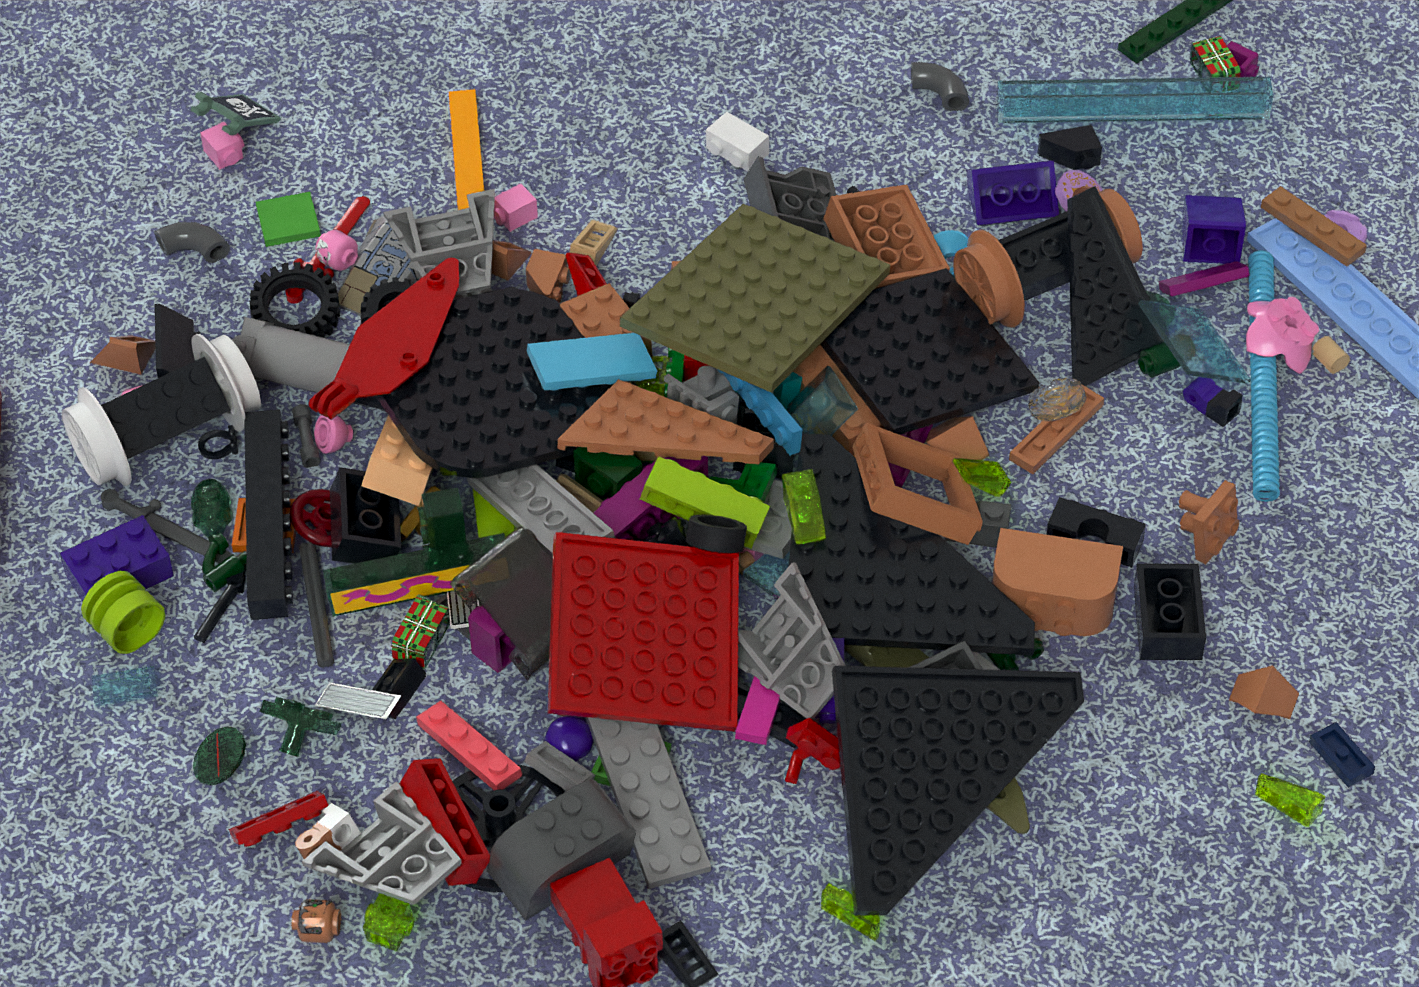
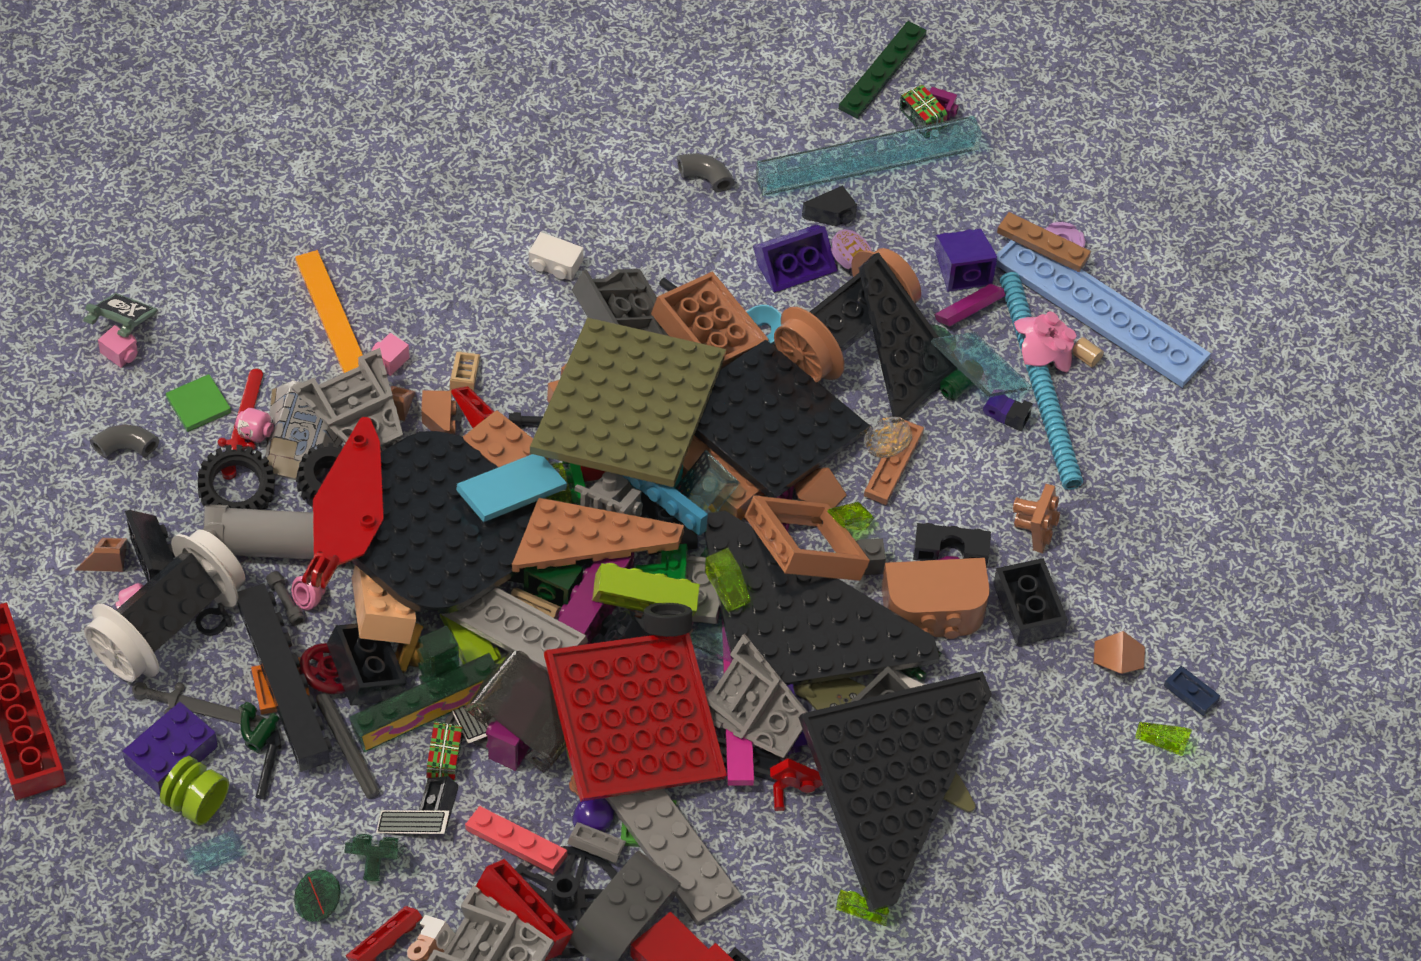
camera: 20 degrees left, 5 degrees up
(211, 507) = (228, 680): clear green arm -> none

